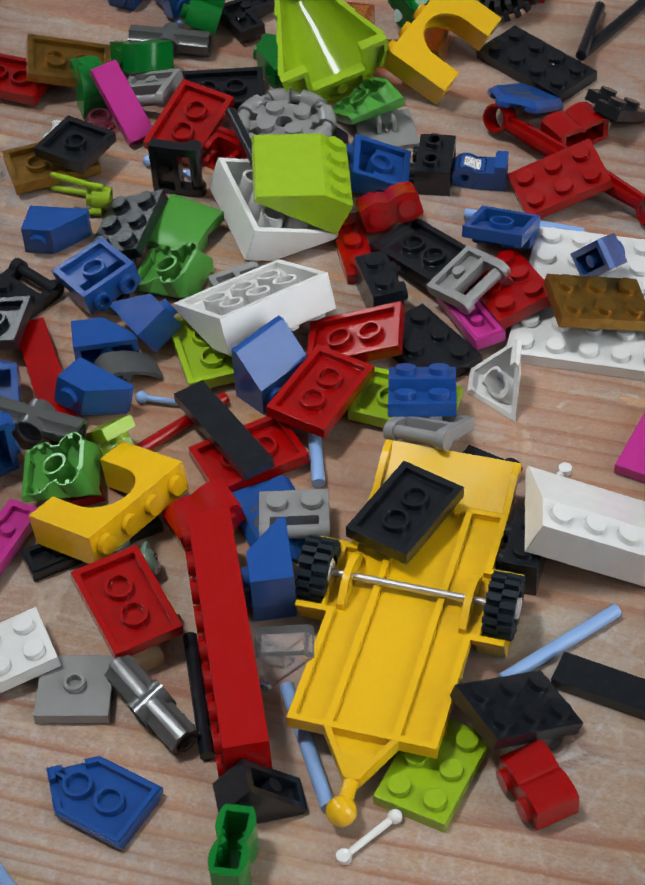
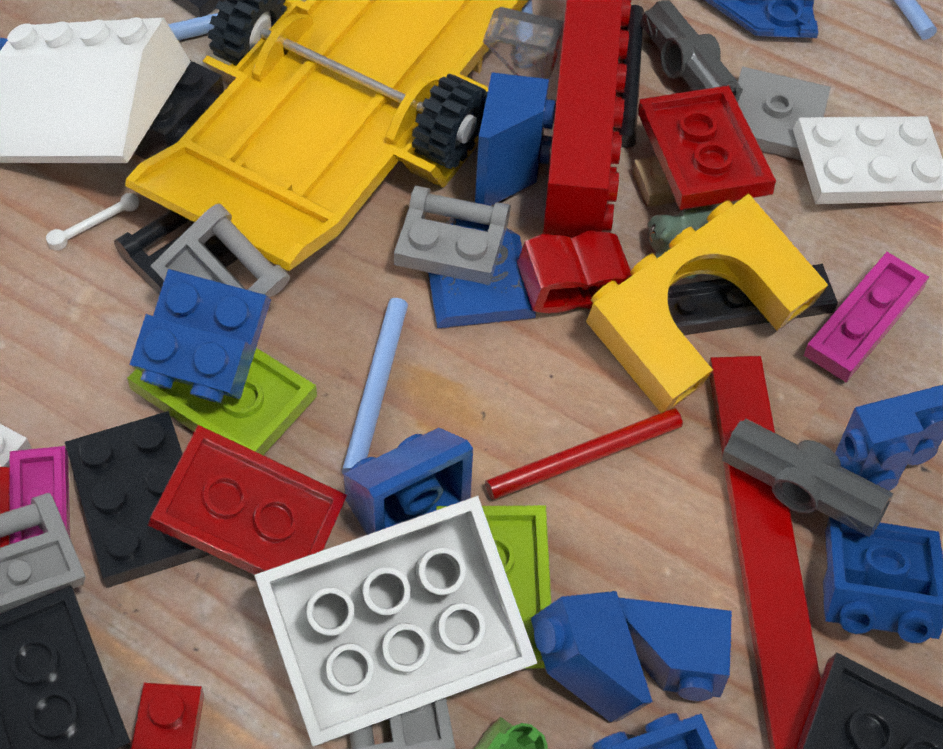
camera: 170 degrees left, 10 degrees up
(62, 469) = (771, 383): bright green slope -> none
(92, 390) = (710, 525): blue slope -> none
(111, 433) = (687, 443): lime slope -> none
(128, 363) = (645, 573): dark grey panel -> none
(142, 397) = (541, 495): light blue hinge -> none
(224, 430) = (516, 390): black tile -> none
(275, 438) = (484, 363): red plate -> none
(320, 391) = (345, 404): red plate -> none
(378, 280) = (158, 620): black brick -> none
(404, 512) = (312, 148): black plate -> none
(498, 380) = (61, 385): white slope -> none

